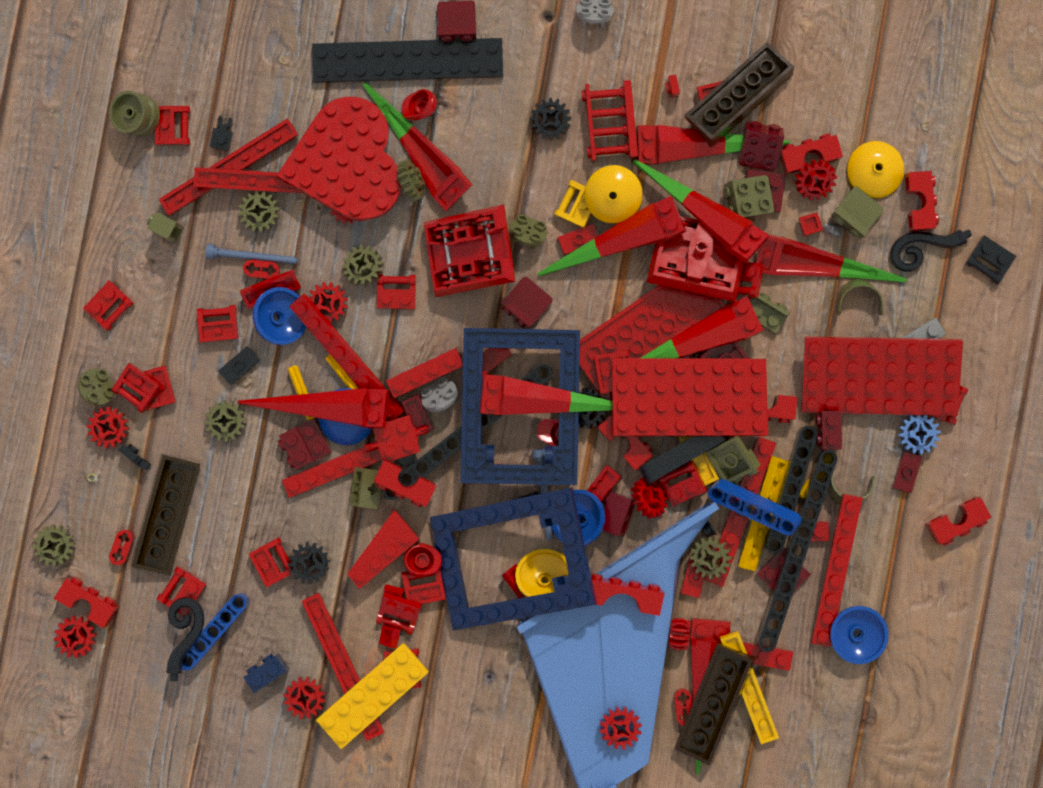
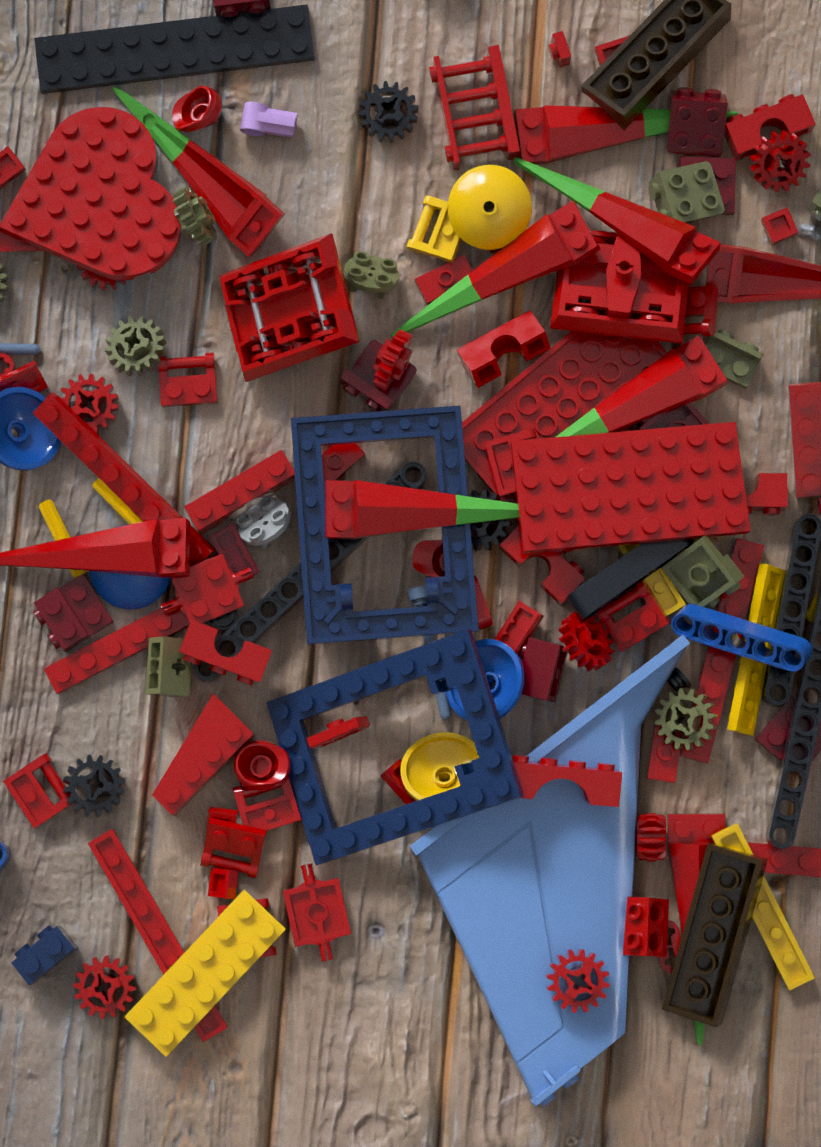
camera: 10 degrees left, 5 degrees down
(450, 661) = (316, 912): none -> red plate
(463, 116) = (261, 120): none -> lavender piece
(476, 544) = (338, 730): none -> red plate
(537, 293) = (392, 359): none -> red gear
(581, 473) = (483, 614): none -> red beam
(624, 283) = (519, 335): none -> red arch
(670, 694) = (646, 927): none -> red brick

